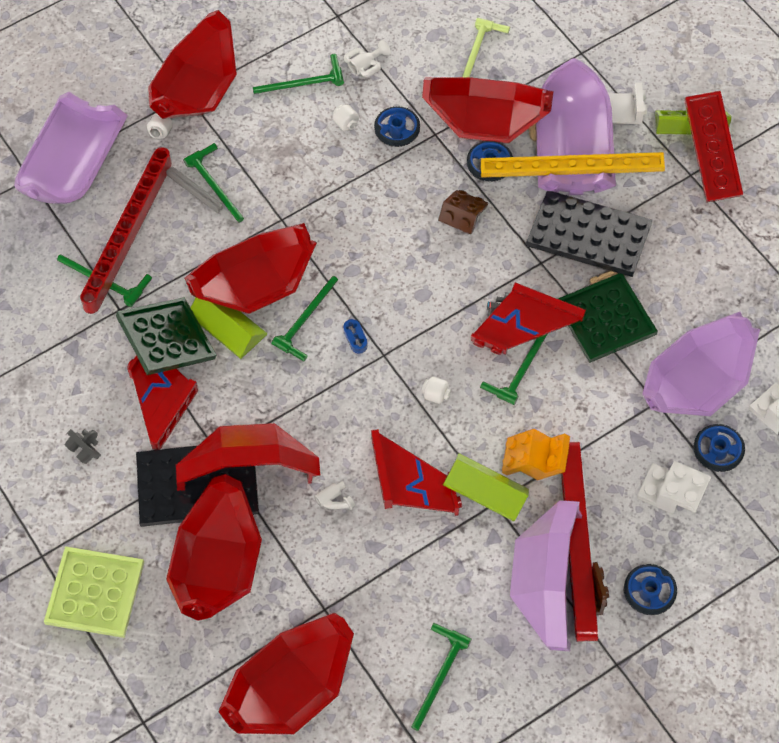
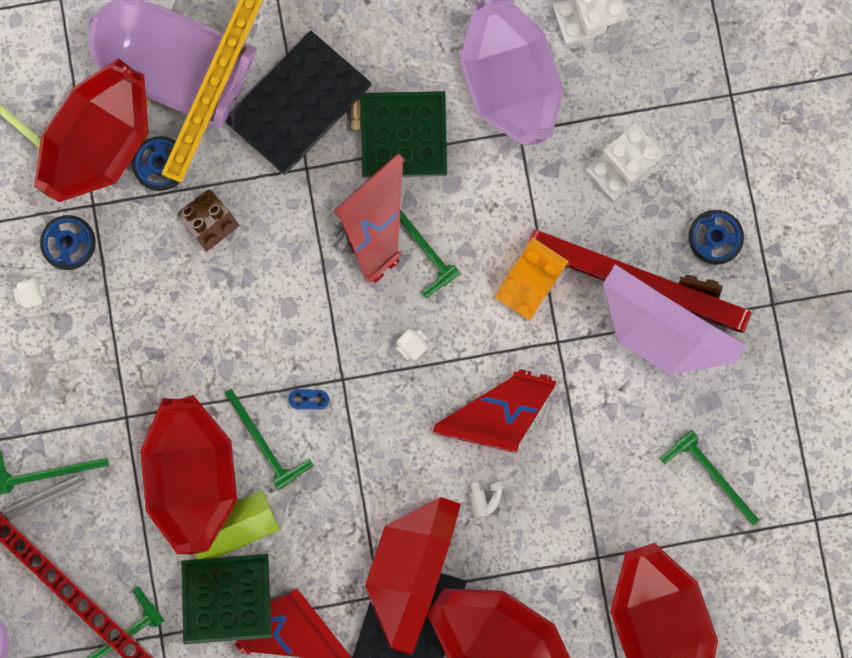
camera: 65 degrees left, 20 degrees up
(486, 487) = (544, 342): lime slope -> none
(708, 460) = (609, 81): blue wheel -> none

